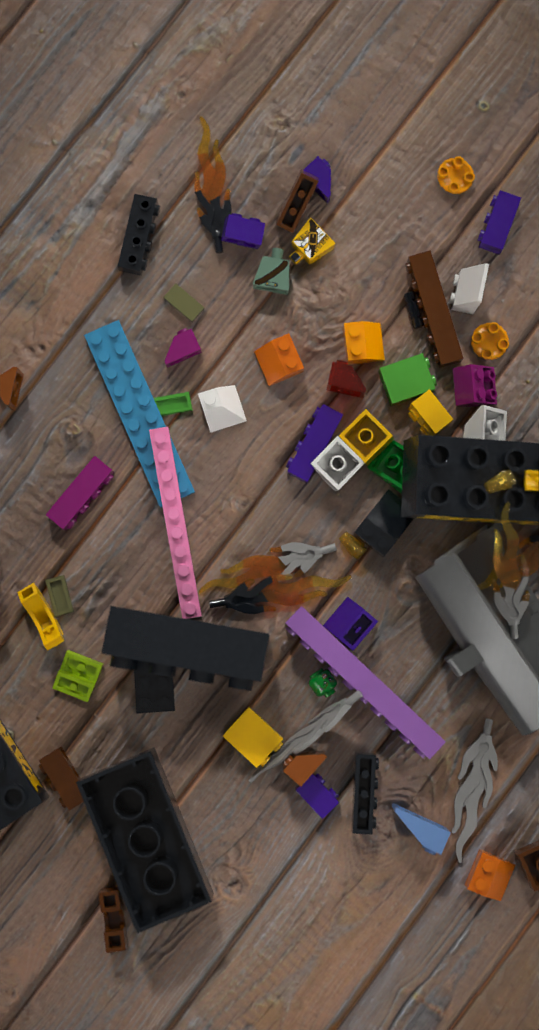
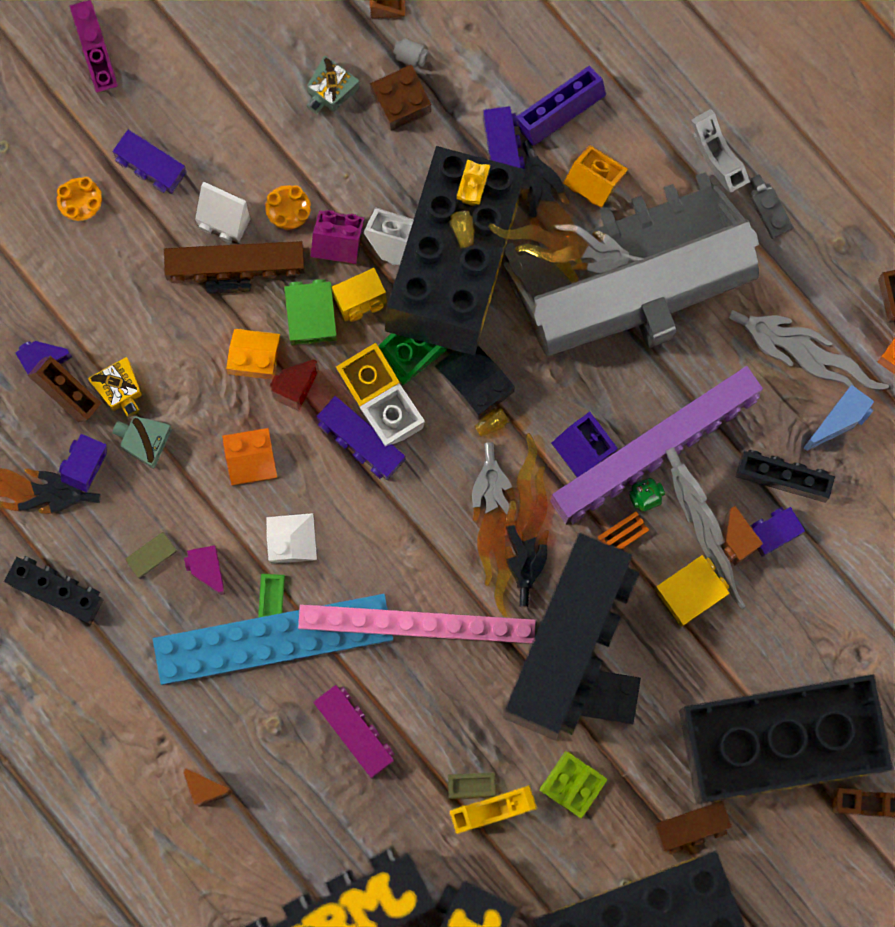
camera: 80 degrees left, 5 degrees down
(299, 682) = (639, 522): none -> orange tile

